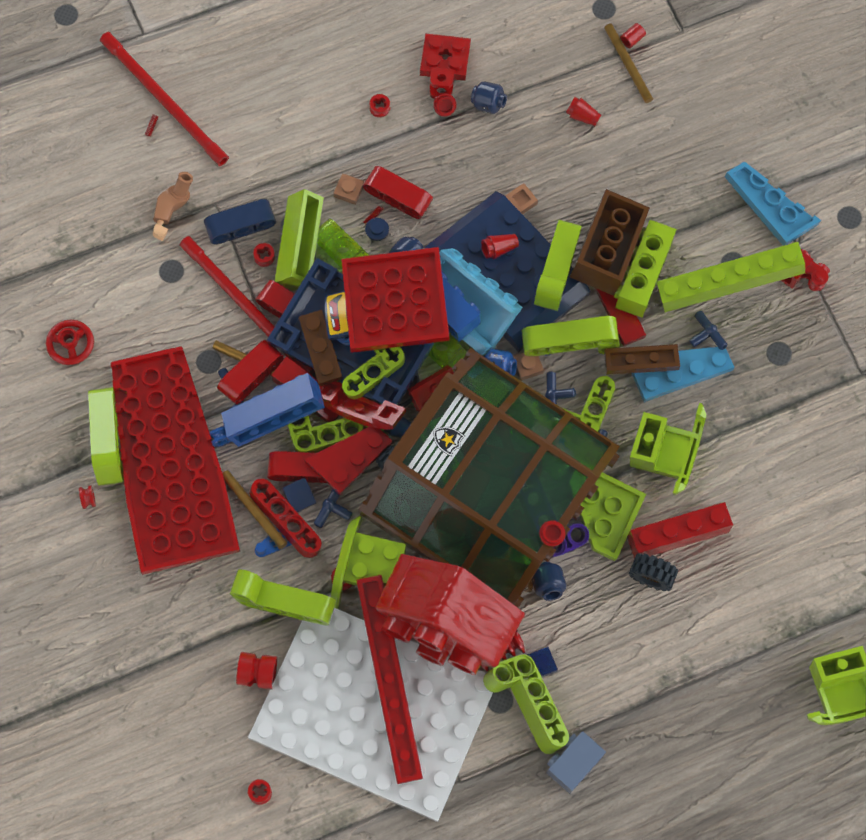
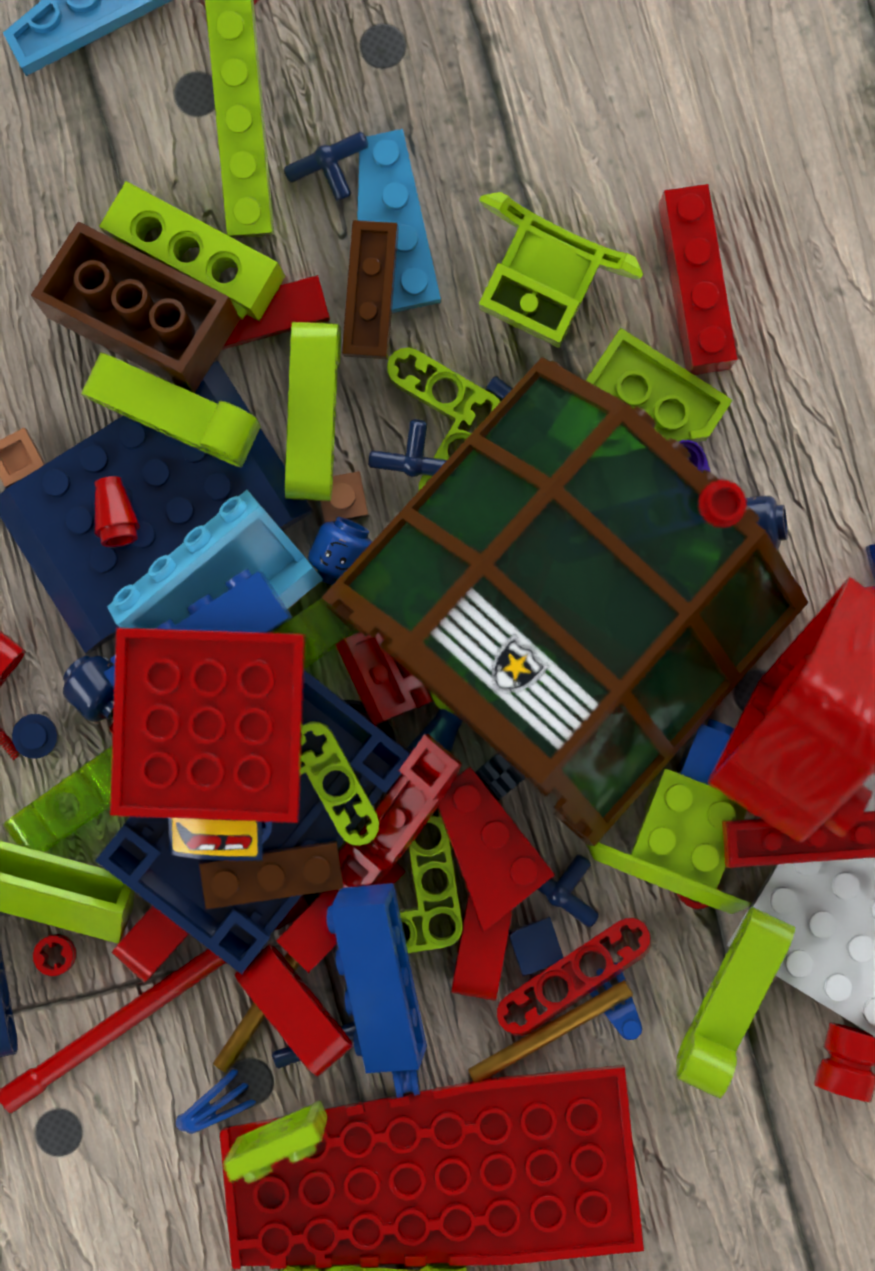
camera: 80 degrees left, 15 degrees up
(182, 364) = (287, 1136): none -> lime plate
(189, 337) = (203, 1114): none -> blue piece
(653, 572) = (770, 339): black bush -> none

